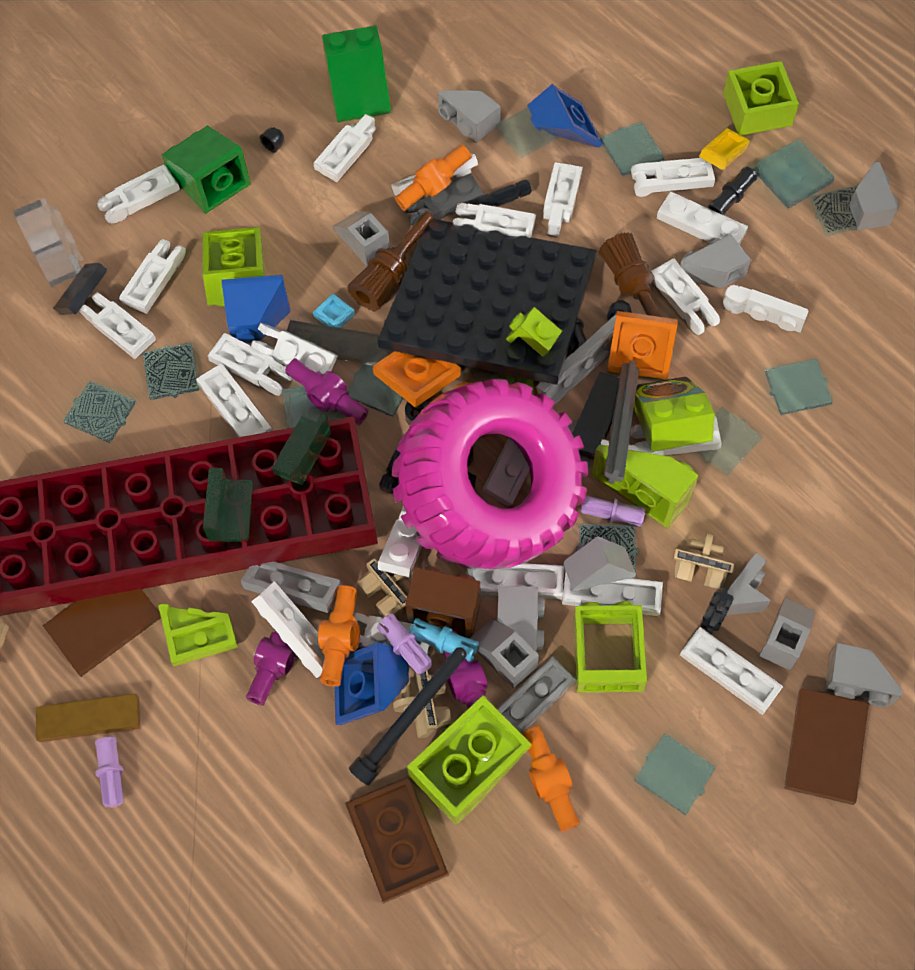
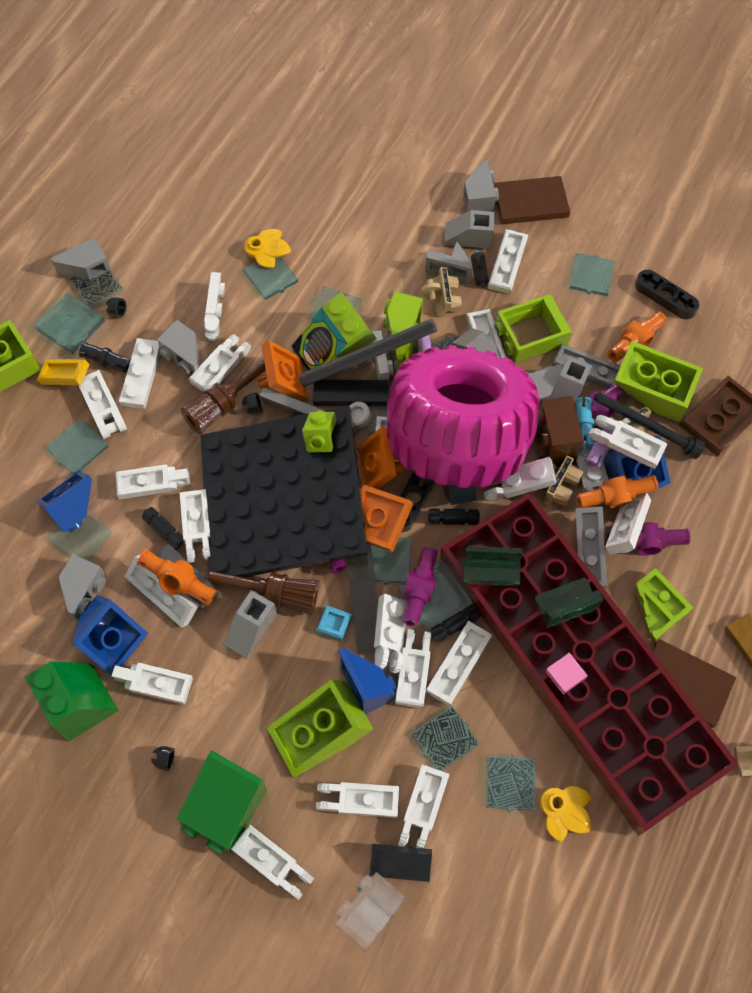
camera: 115 degrees left, 0 degrees up
(43, 448) = (570, 812): none -> yellow plate
(157, 475) = (566, 673): none -> bright pink tile
(276, 410) = (455, 623): none -> black axle
(383, 659) = (628, 441): none -> white hinge
(410, 121) = (107, 634): none -> blue slope
(568, 406) = (361, 414): none -> white tile
(608, 843) = (665, 285): none -> black beam
(798, 217) = (116, 307): none -> black hinge
(837, 393) = (266, 247): none -> yellow plate

